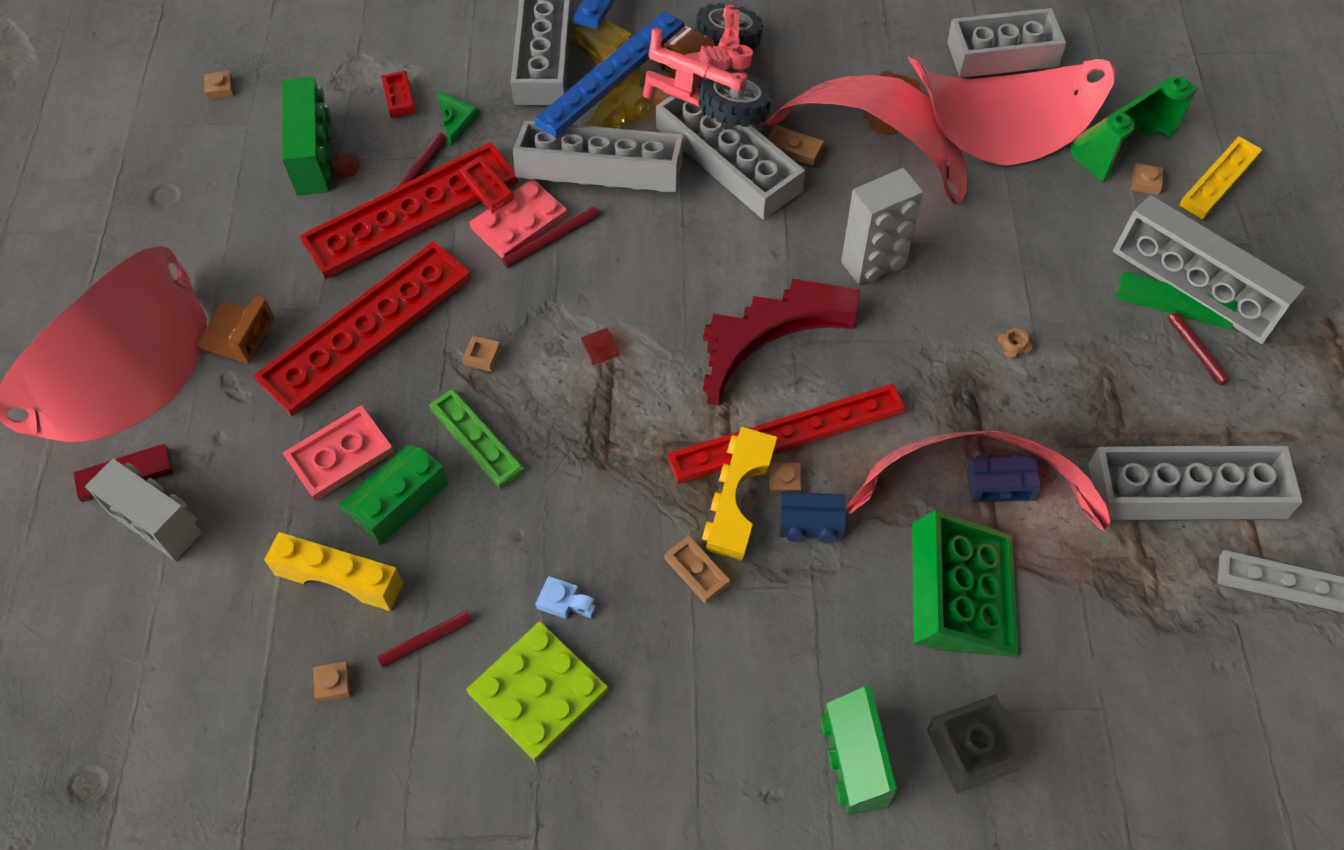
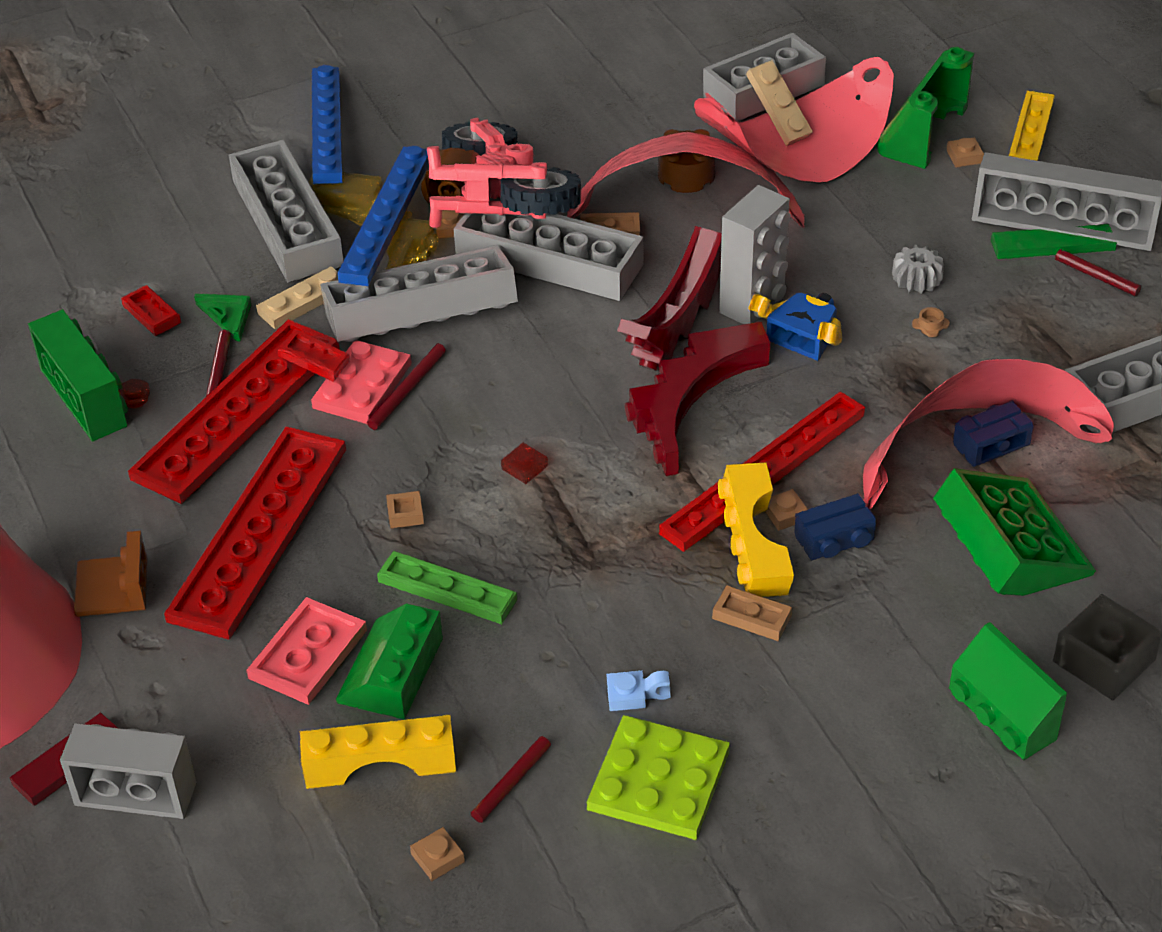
camera: 25 degrees left, 15 degrees down
(508, 124) = (296, 299): none -> tan plate
(793, 254) = (674, 313): none -> dark red arch
(899, 301) = (800, 322): none -> blue torso
(1001, 74) = (779, 102): none -> tan plate
(1032, 285) = (918, 269): none -> light grey gear

